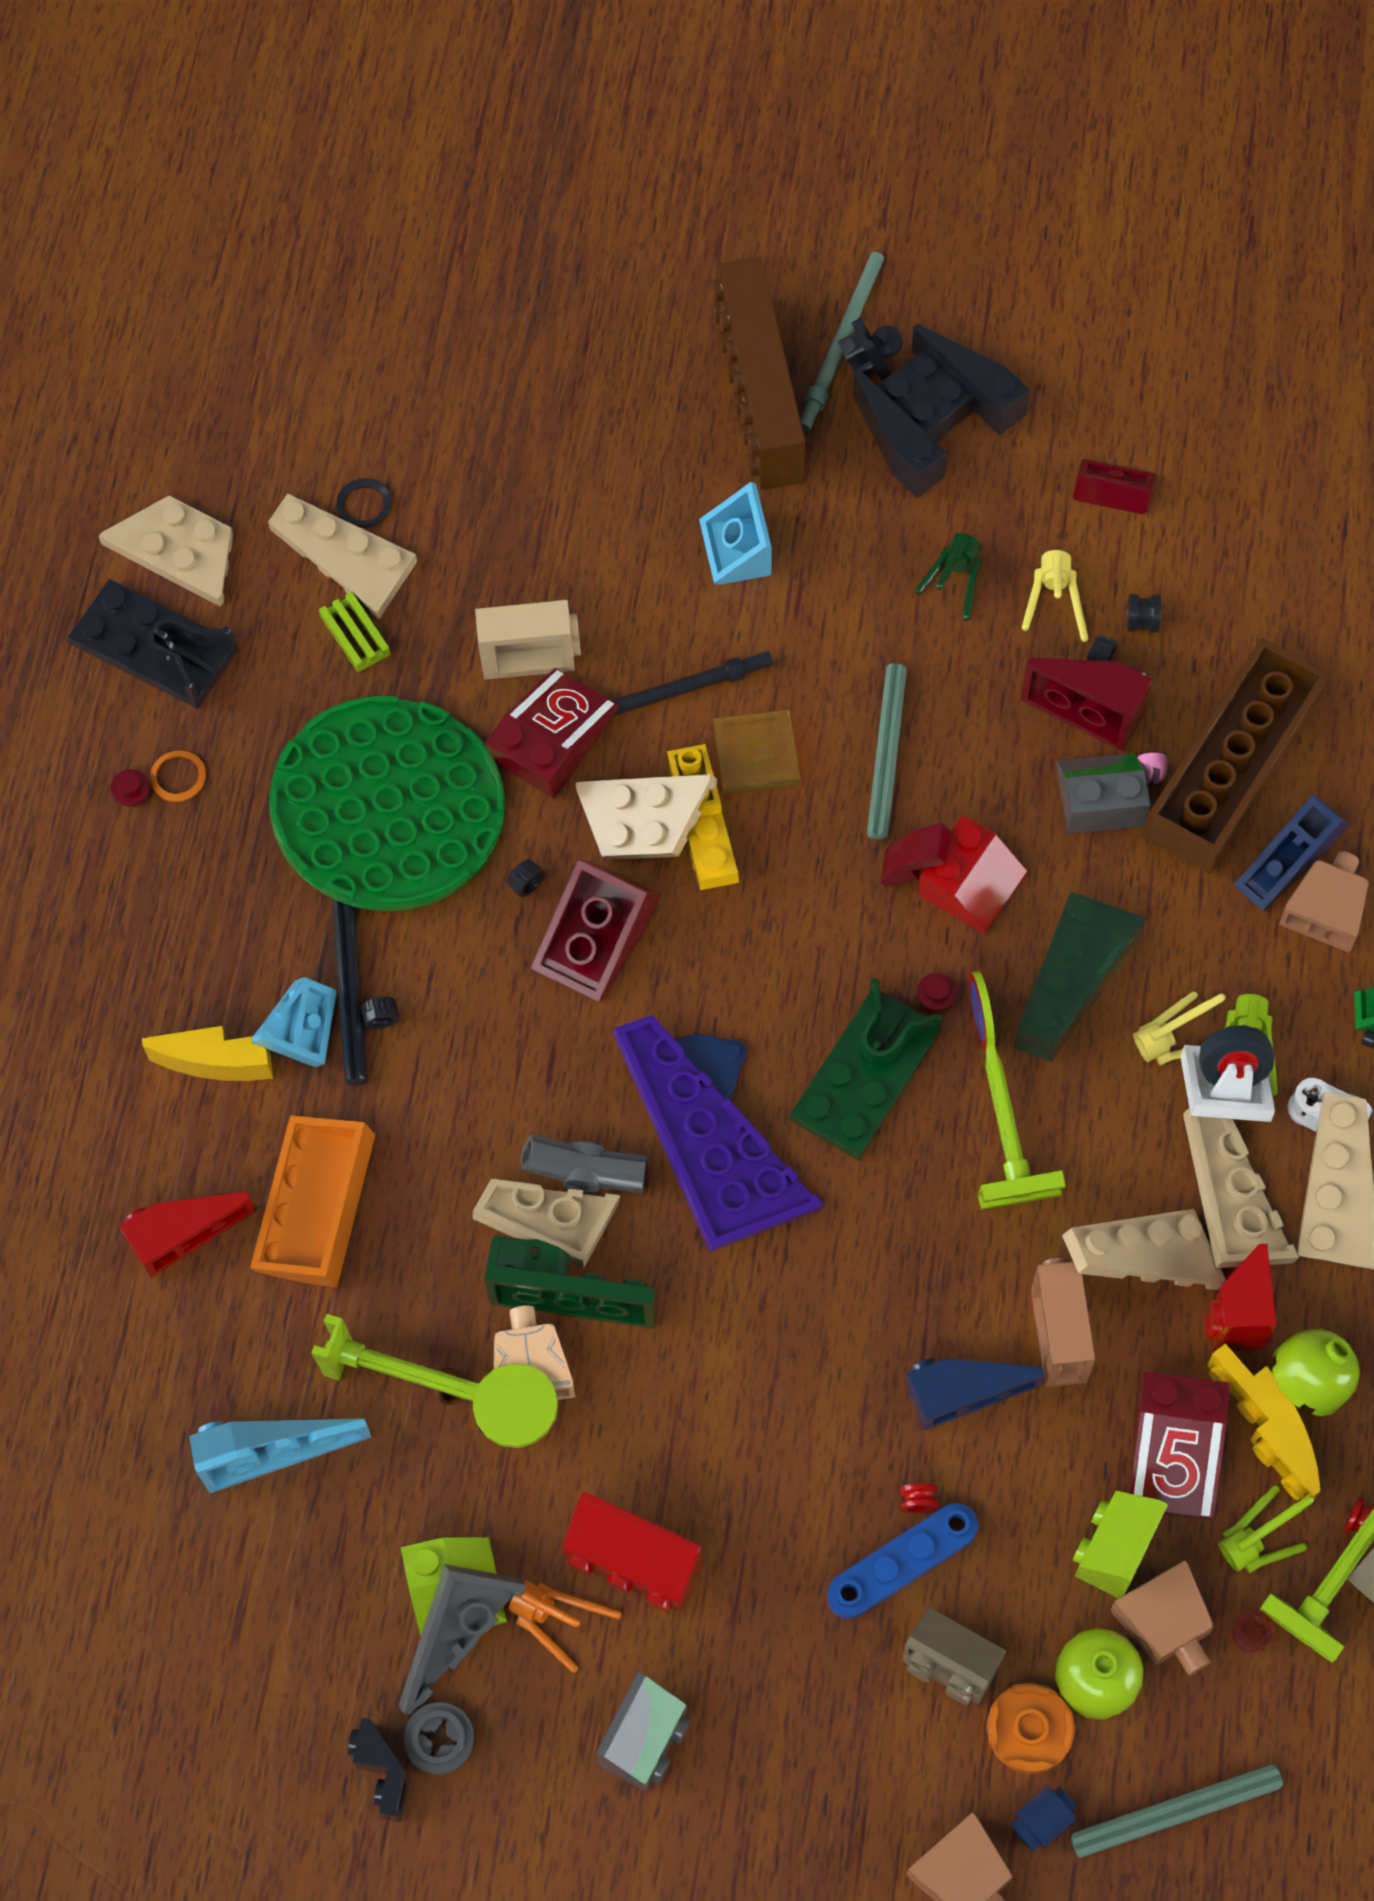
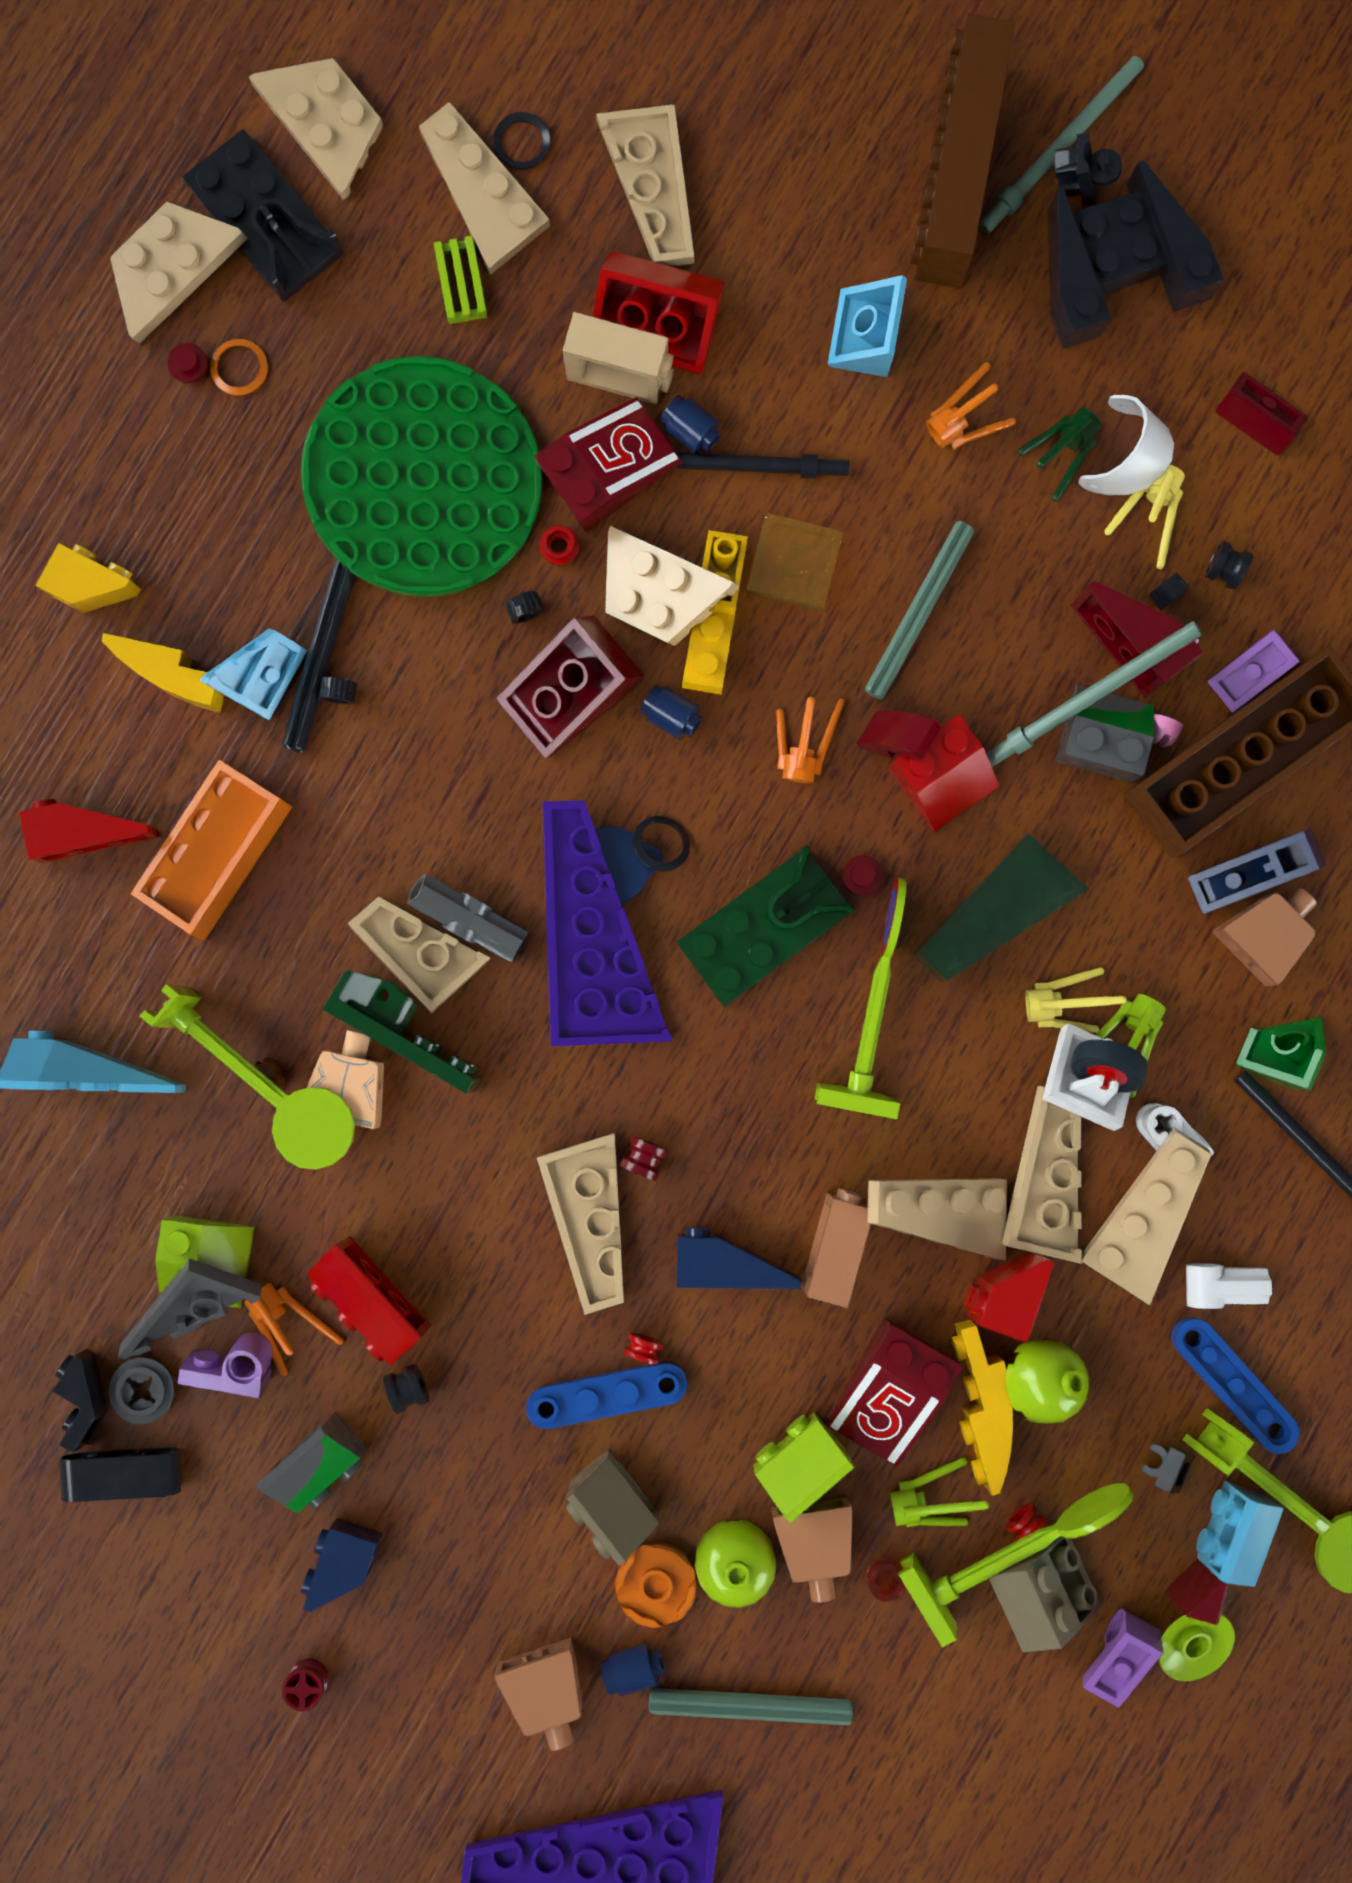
camera: 15 degrees right, 20 degrees up
(82, 710) = (168, 263): none -> tan wing
(105, 1006) = (82, 582): none -> yellow slope
(449, 1828) = (120, 1474): none -> black beam
(492, 486) = (651, 171): none -> tan wing
(498, 1685) = (231, 1372): none -> medium lavender plate
(532, 806) = (555, 534): none -> red plate
(547, 578) = (662, 303): none -> red slope
(613, 672) = (691, 424): none -> dark blue brick
(699, 917) = (671, 712): none -> dark blue brick
(703, 1628) = (406, 1388): none -> black wheel
(710, 1825) = (343, 1564): none -> dark blue slope
(737, 1051) = (647, 860): none -> black piece
(806, 1388) = (586, 1210): none -> tan wing
(837, 918) = (800, 764): none -> orange plant
(843, 588) = (948, 425): none -> orange plant
(843, 1319) = (644, 1158): none -> dark red wheel
(1027, 820) = (1022, 738): none -> sand green bar
(1029, 558) = (1146, 461): none -> white piece
(1206, 686) = (1253, 670): none -> medium lavender plate

